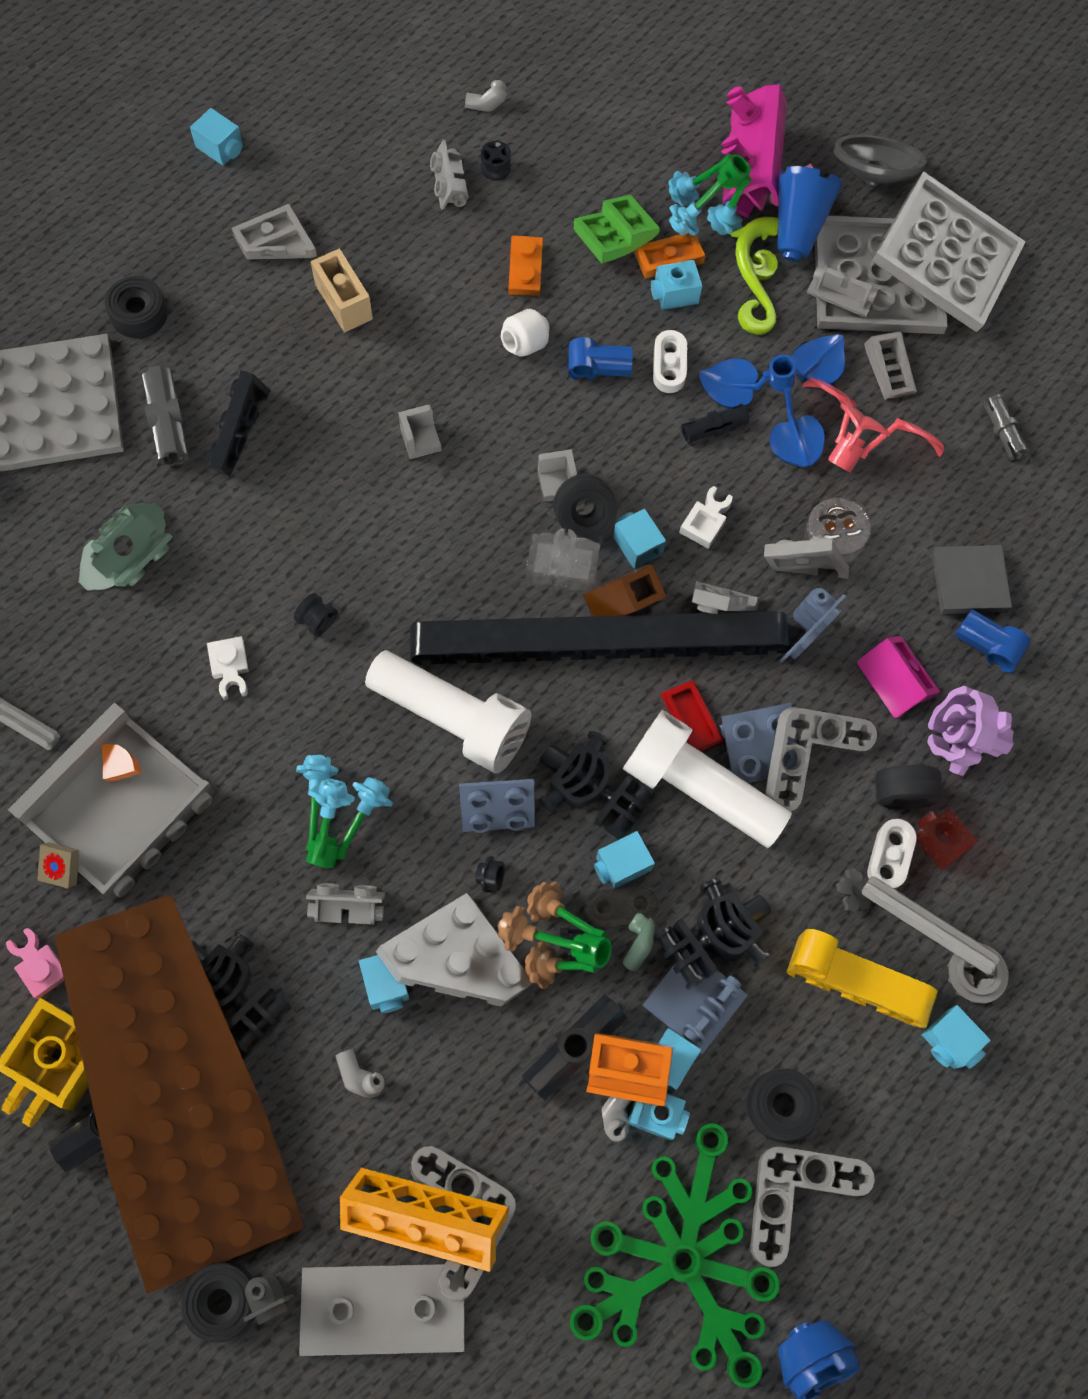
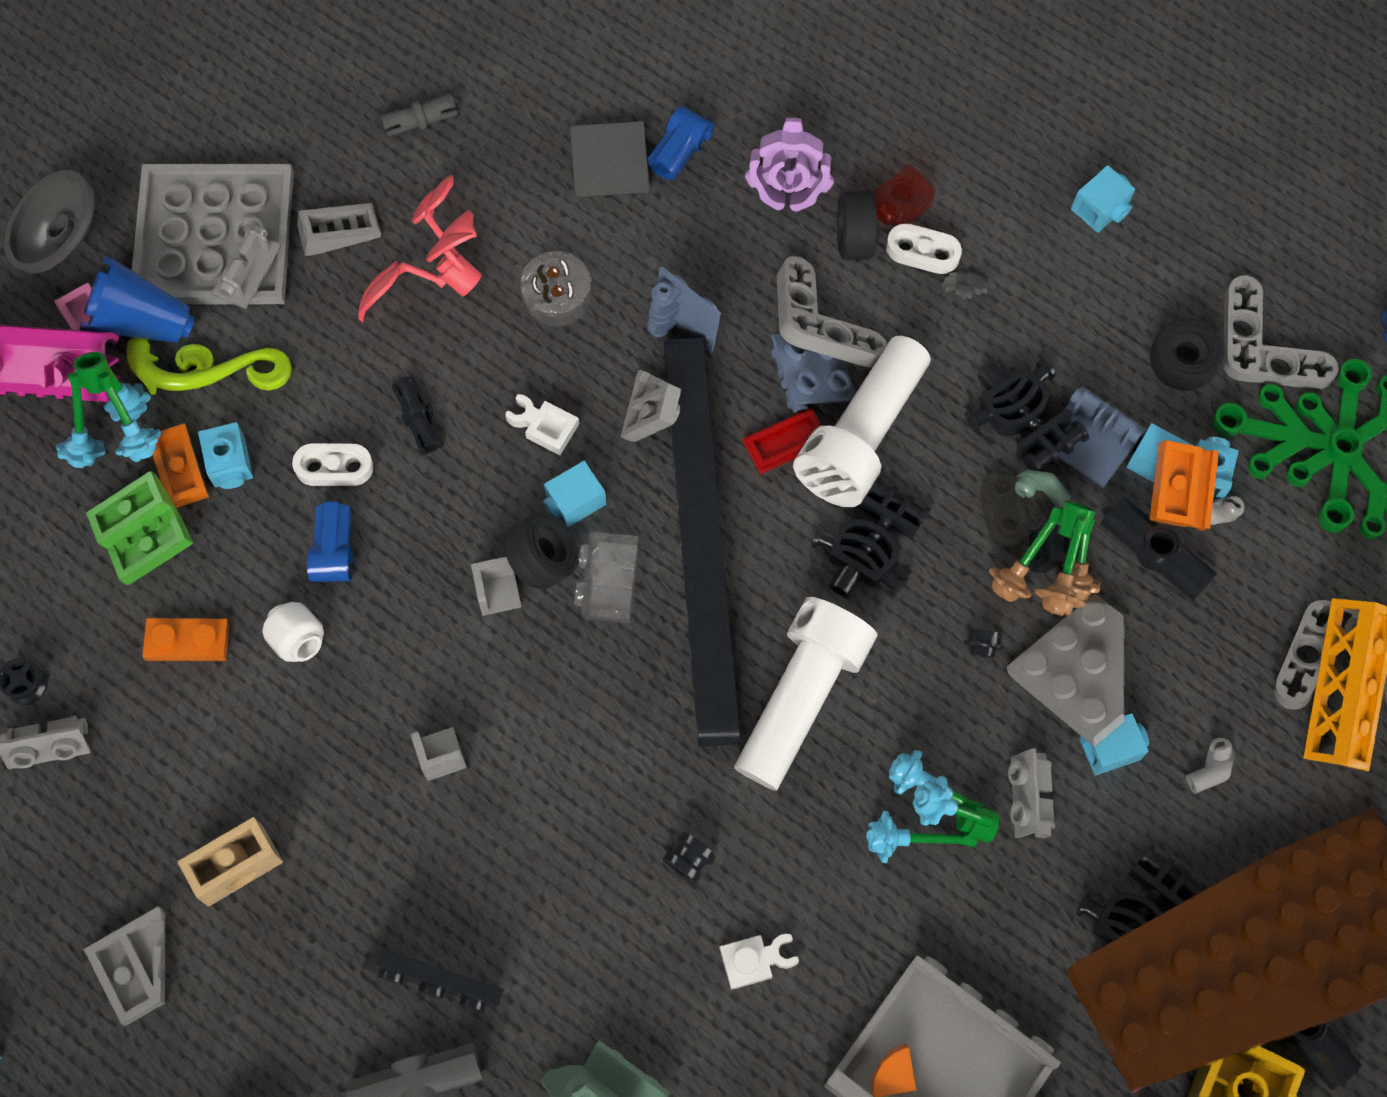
camera: 90 degrees left, 0 degrees up
(497, 805) = (909, 622): sand blue hinge -> none
(623, 861) = (958, 504): medium azure brick -> none
(625, 593) = (649, 505): reddish brown slope -> none
(733, 382) = (363, 397): blue plant -> none
(806, 556) = (593, 302): light grey wing -> none
(860, 979) = (1057, 281): yellow beam -> none
(897, 676) = (726, 235): dark pink panel -> none
(931, 925) = (996, 214): light grey axle -> none
(949, 252) = (192, 154): light grey plate -> none
(986, 989) = (1049, 172): light grey gear -> none

